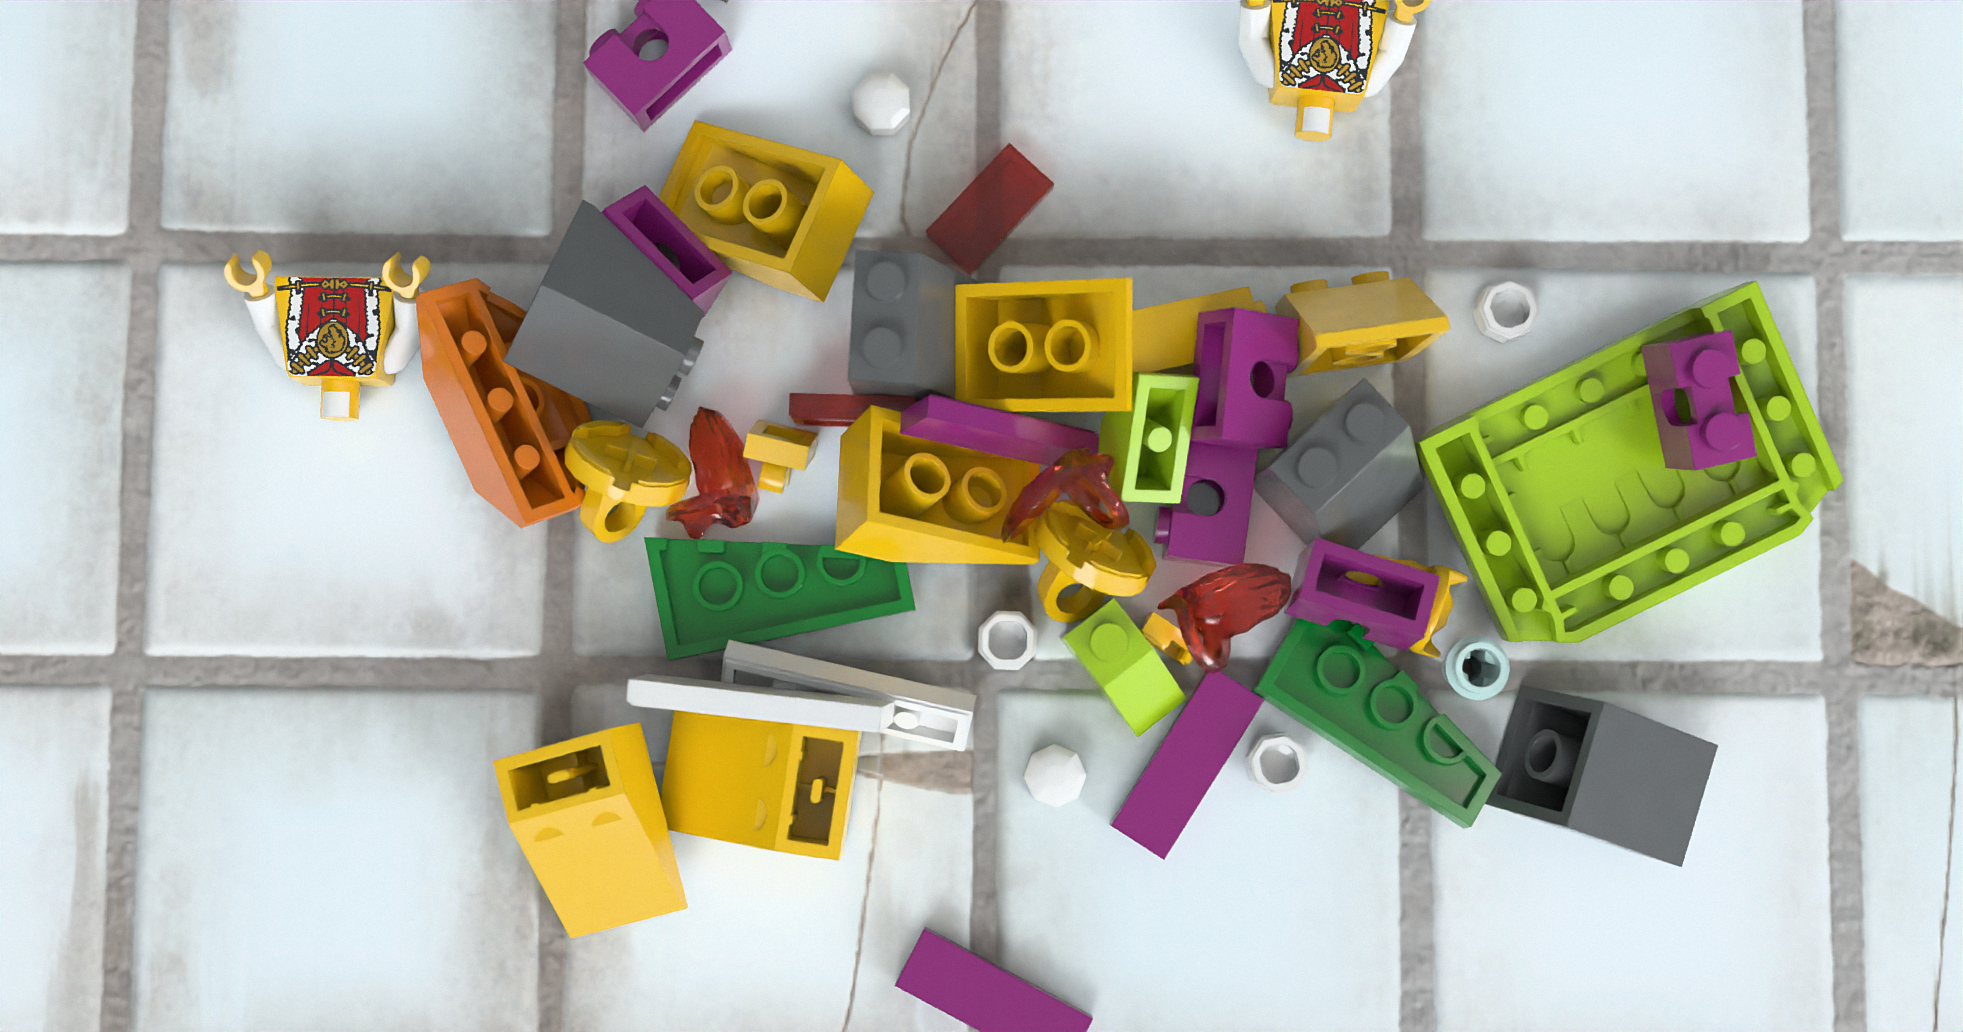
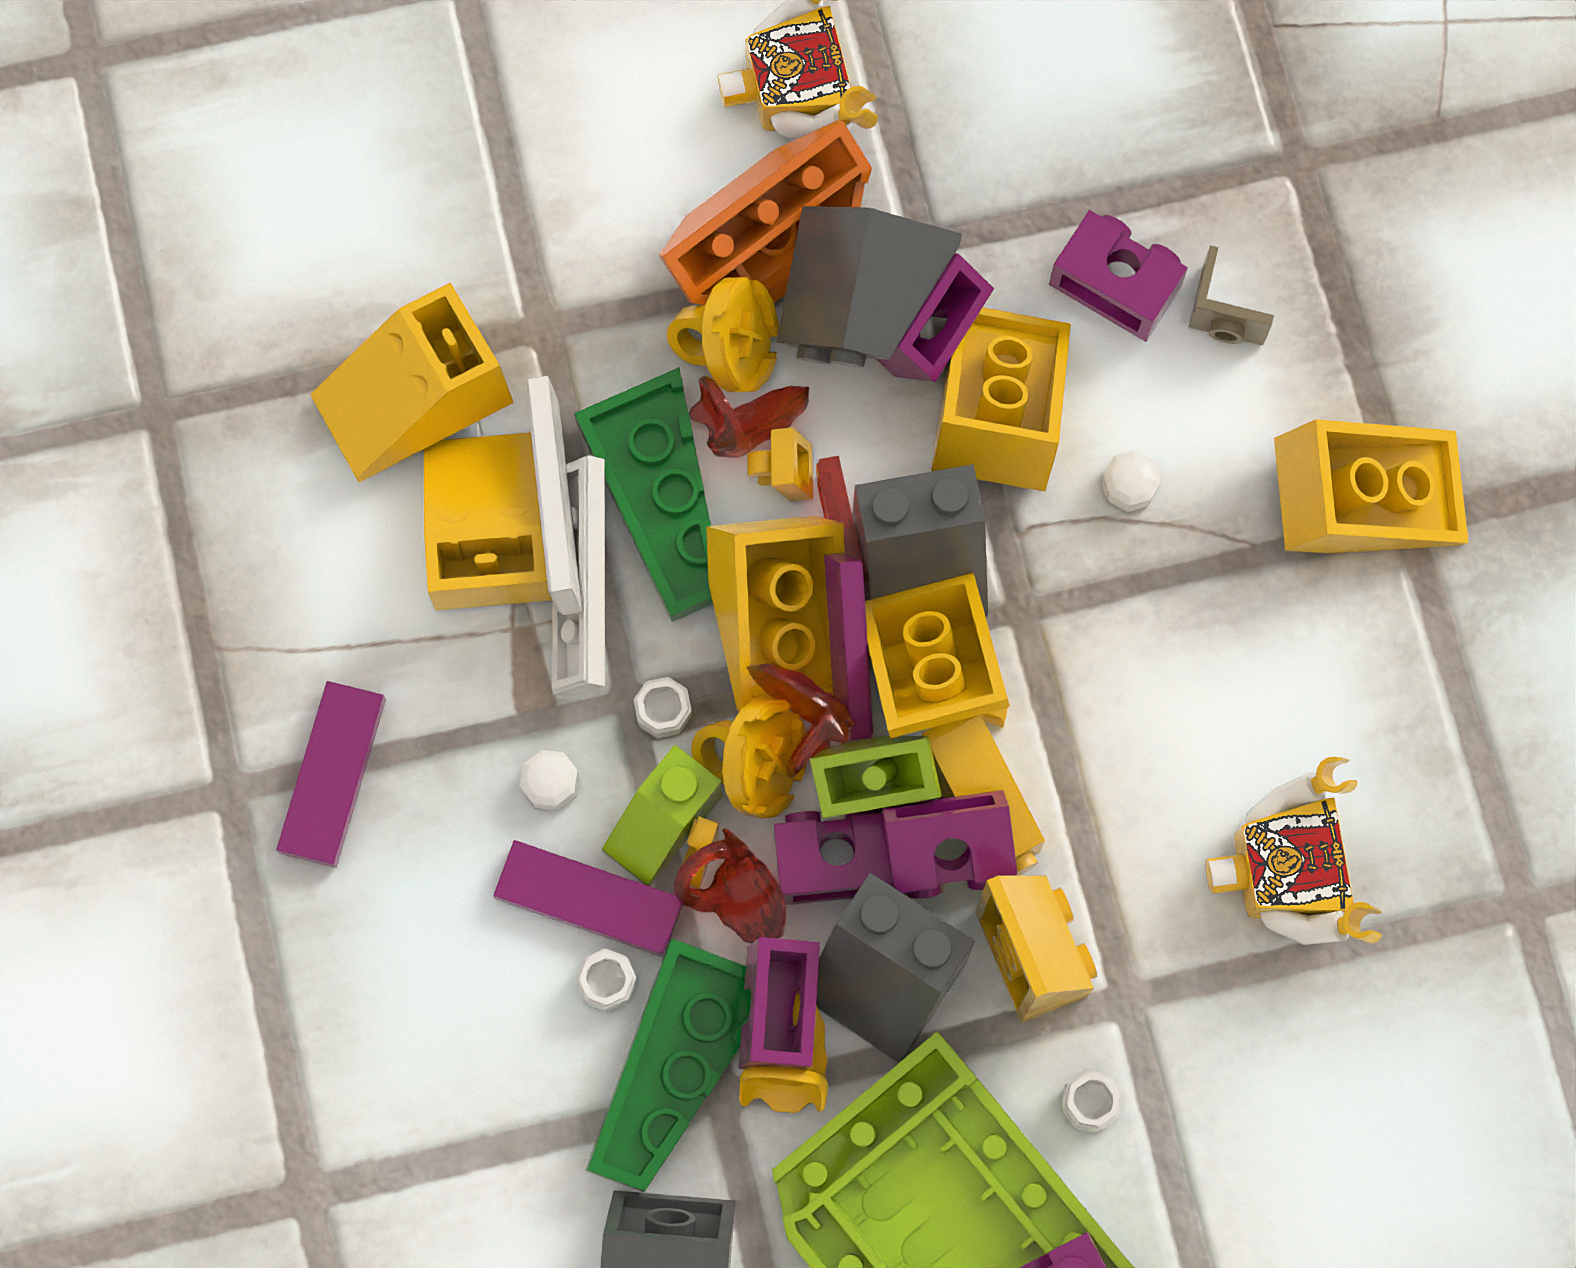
camera: 80 degrees right, 10 degrees down
(989, 209) = (1059, 601): clear red tile -> none
(1488, 663) = (736, 1116): light aqua cone -> none

